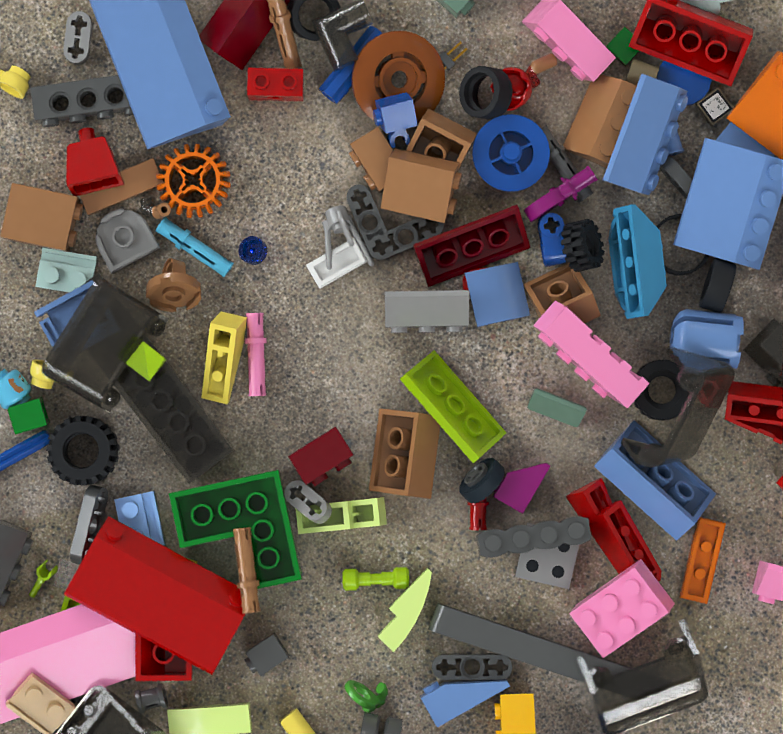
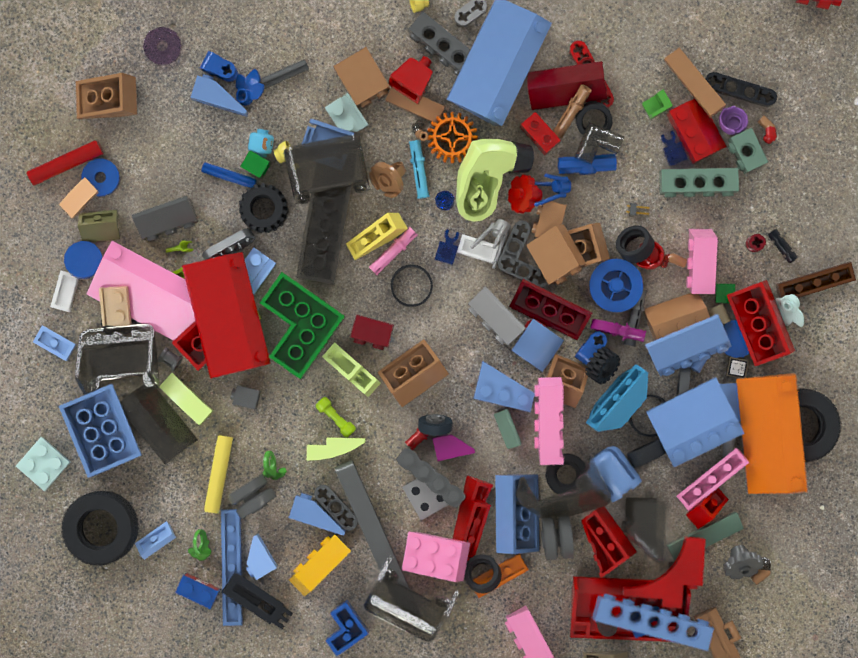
camera: 50 degrees right, 0 degrees up
(124, 239) = (390, 130): light grey tile -> none
(146, 361) = (338, 198): lime slope -> none
(246, 570) = (279, 346): medium nougat pin -> none
(262, 184) = (483, 172): none -> yellowish green piece
(283, 363) = (408, 266): none -> black tyre
(304, 506) = (338, 346): light grey beam -> none
(309, 297) = (446, 250): none -> clear blue plate
(324, 160) = (523, 194): none -> red plant
(349, 116) = (561, 186): none -> blue plant
(394, 116) = (580, 209): brick -> none
(408, 54) = (618, 197): dark orange piece -> none
(453, 406) = (459, 375): lime plate -> none
(510, 375) = (502, 390): none -> medium blue wedge
(706, 575) = (489, 586): none -> black tyre
(718, 464) = (560, 537): none -> dark grey wheel

